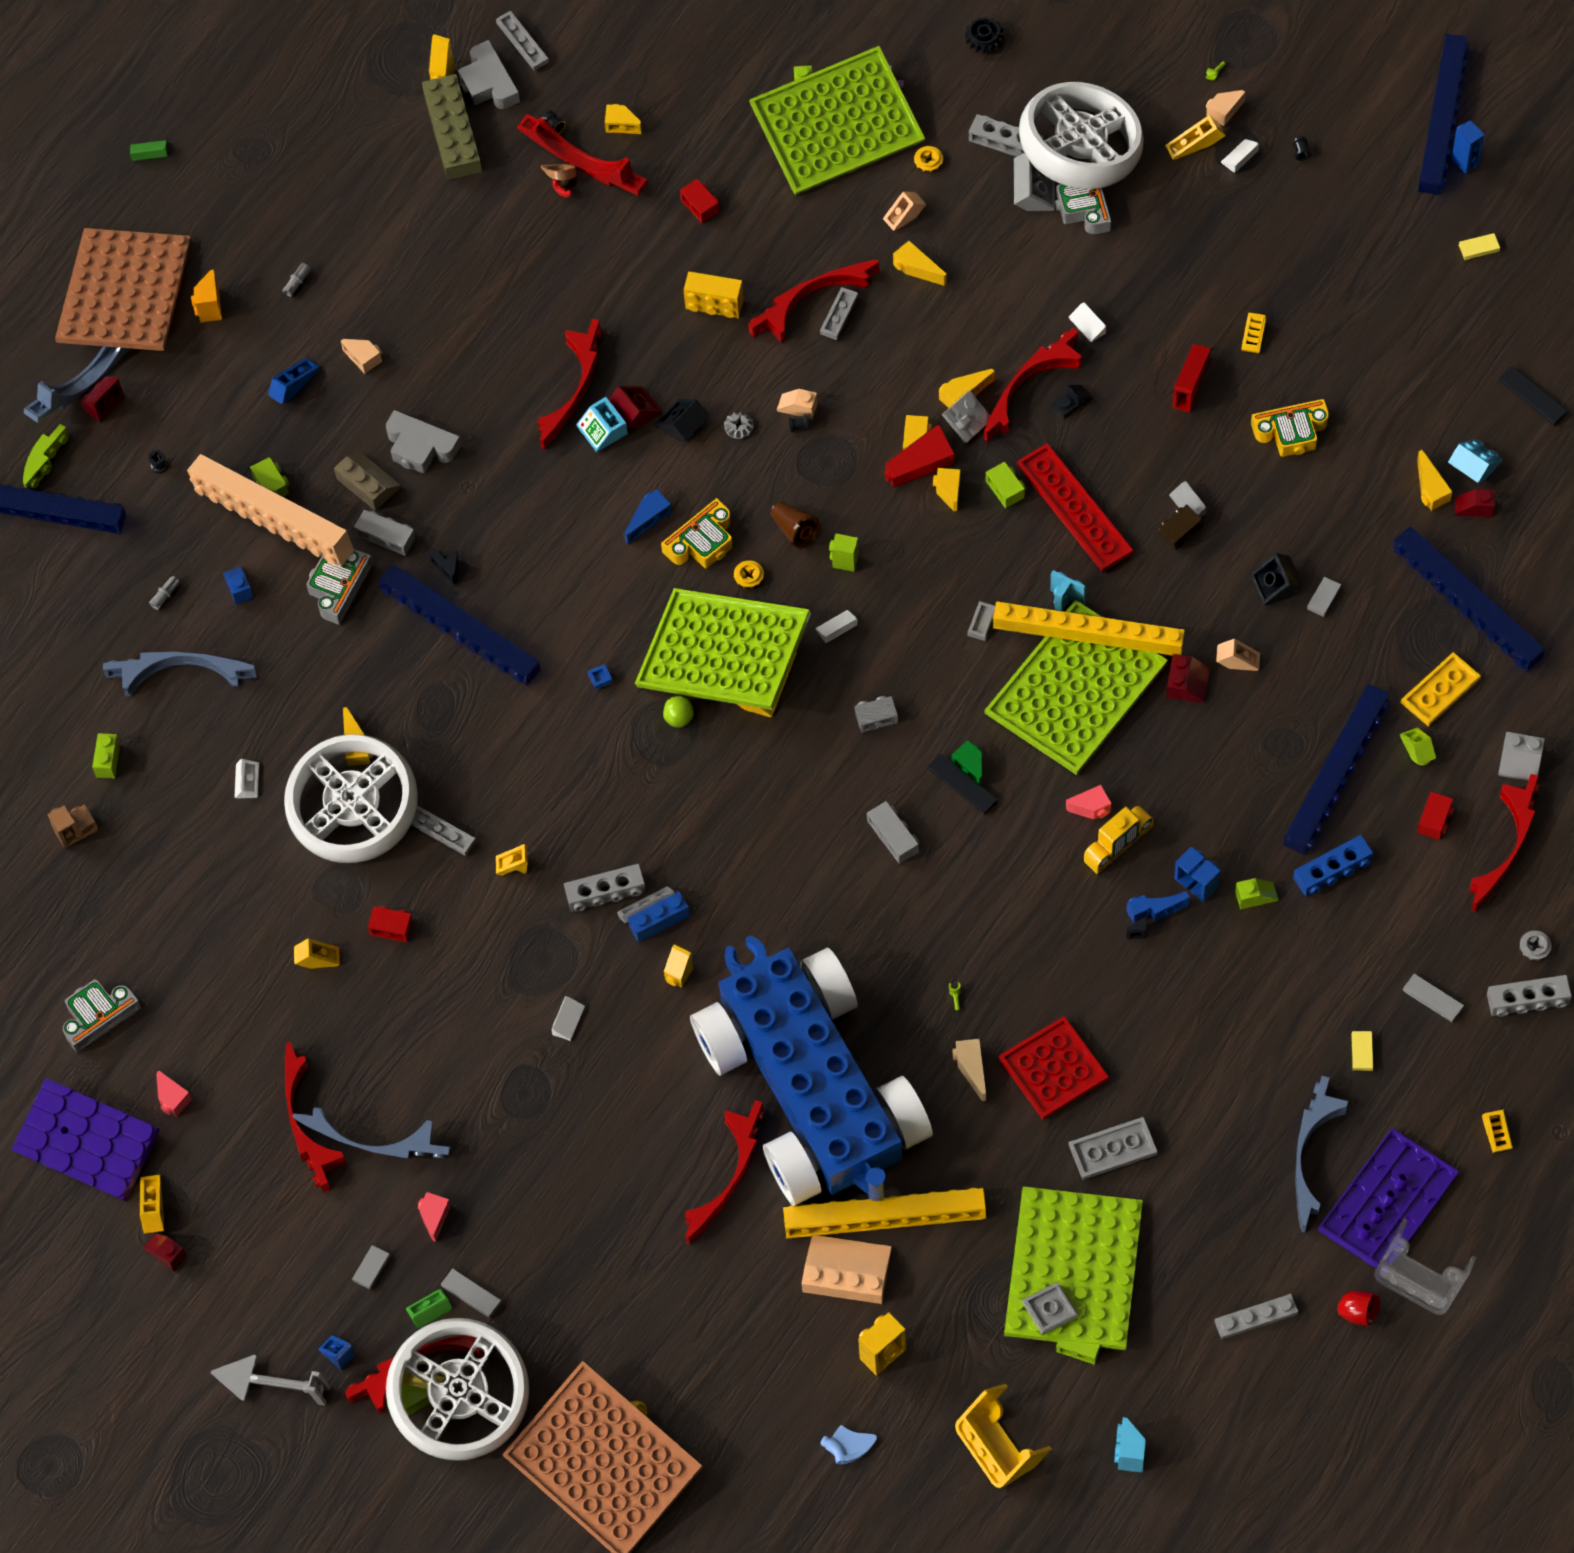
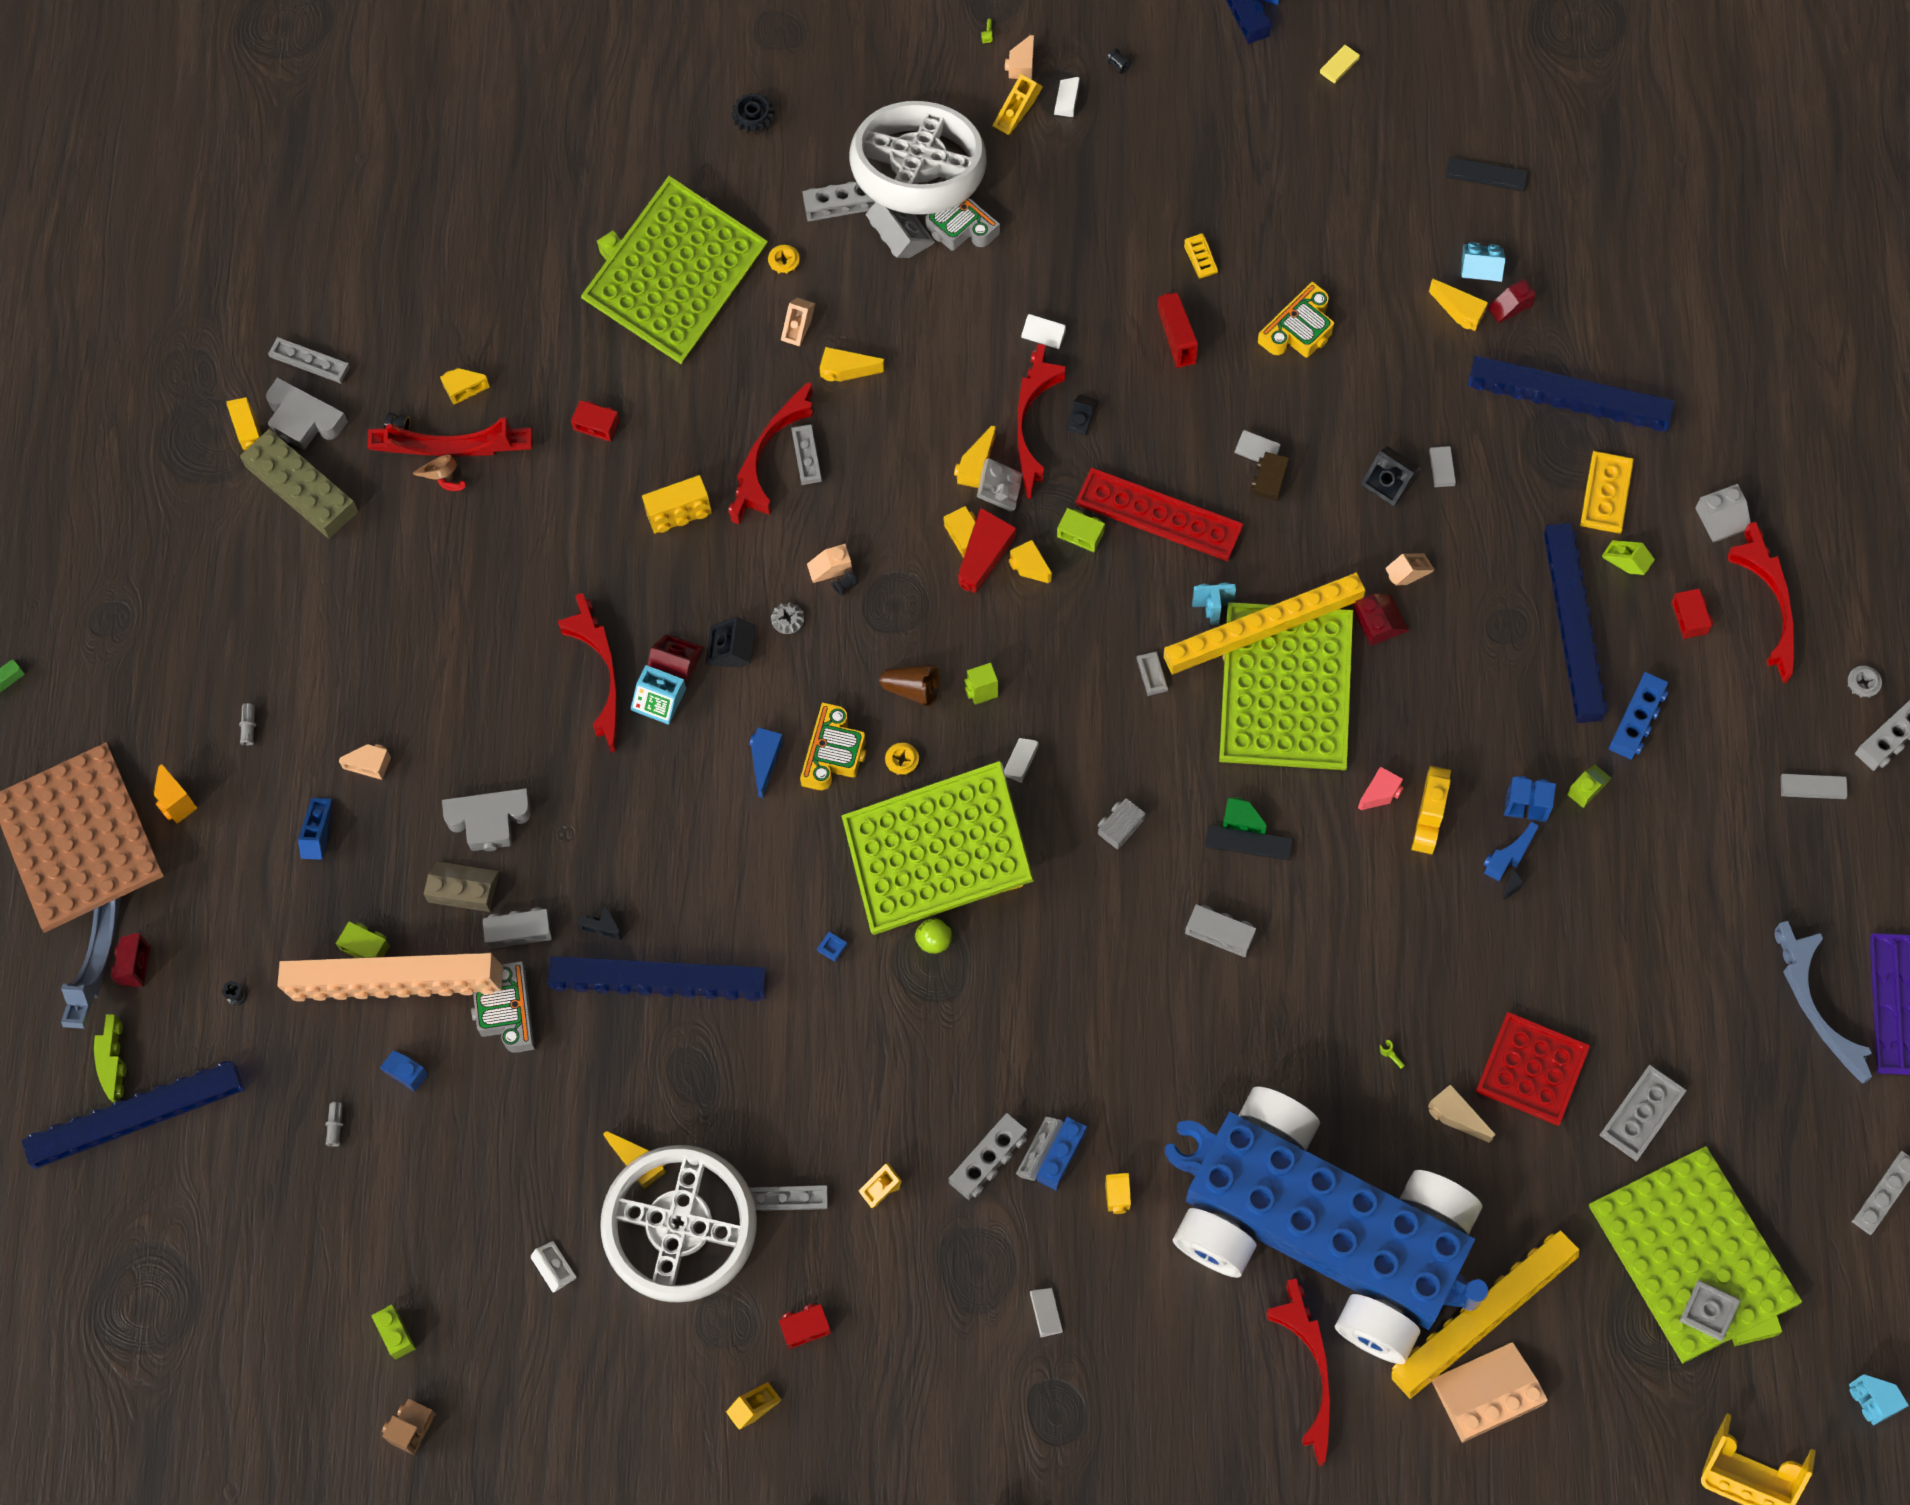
camera: 35 degrees left, 5 degrees up
(136, 671) = (362, 1224): sand blue slope -> none
(882, 1343) = (1586, 1449): yellow brick -> none
(1362, 1051) = (1790, 876): light yellow tile -> none

